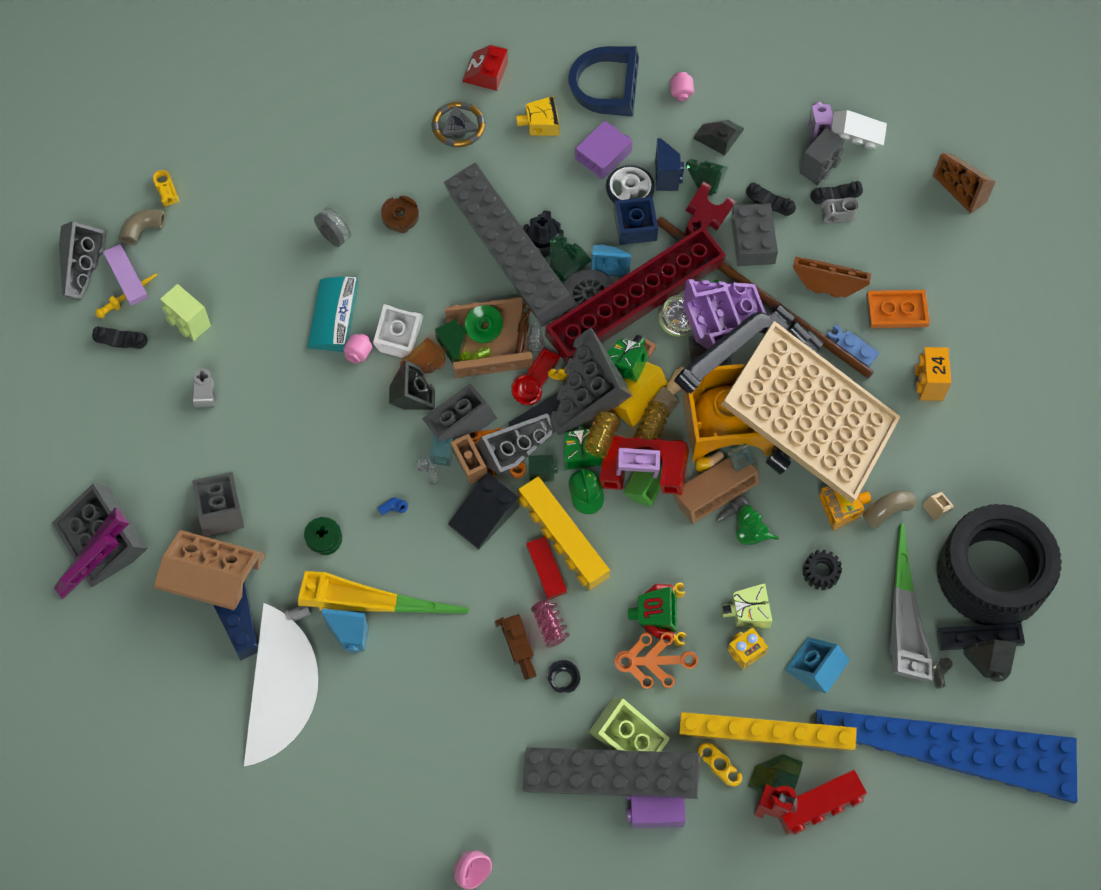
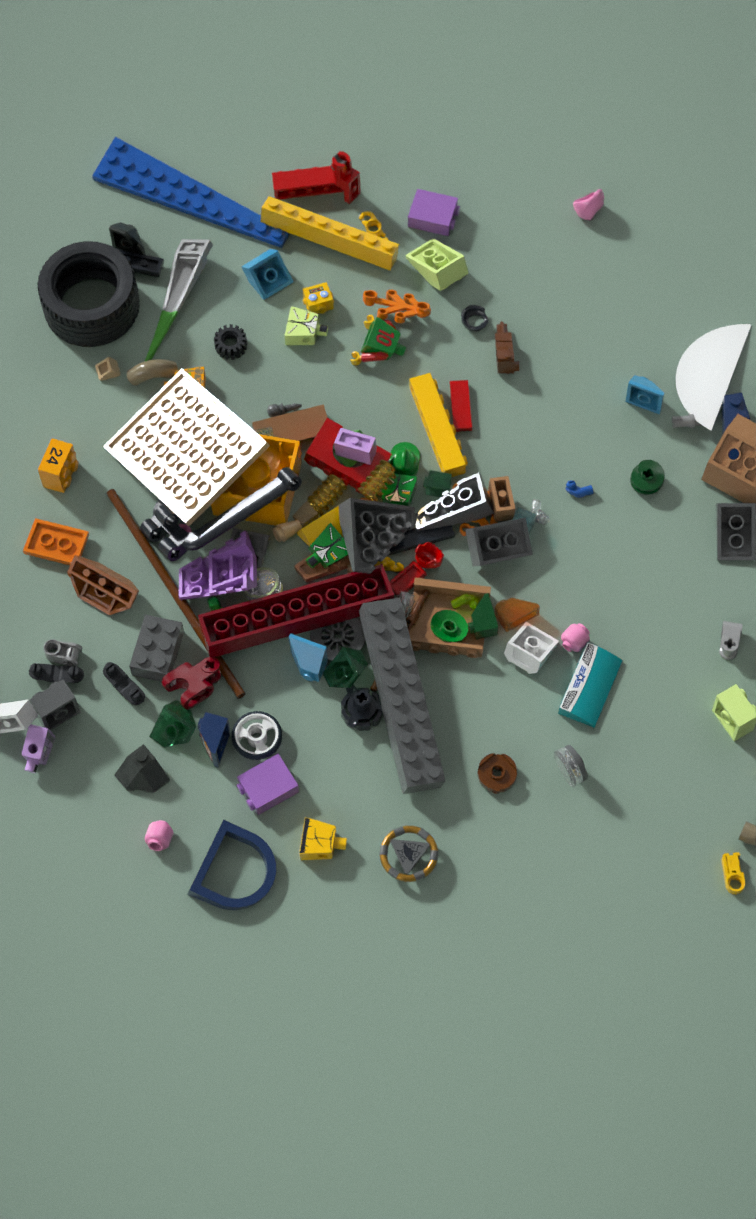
camera: 160 degrees left, 0 degrees up
(336, 593) = (643, 424): yellow plate -> none
(410, 389) = (535, 582): pearl dark grey slope -> none
(484, 511) = (499, 460): black slope -> none
(487, 67) = (357, 920): red slope -> none
(548, 623) = (472, 356): clear pink piece -> none
(612, 772) = (462, 234): dark grey plate -> none
(636, 220) = (266, 691): dark blue brick -> none
(751, 528) = (273, 386): green hair -> none
(776, 773) = (334, 204): clear green slope -> none
(854, 346) = (112, 521): medium blue plate -> none
(940, 670) = (167, 250): clear smoke arm -> none

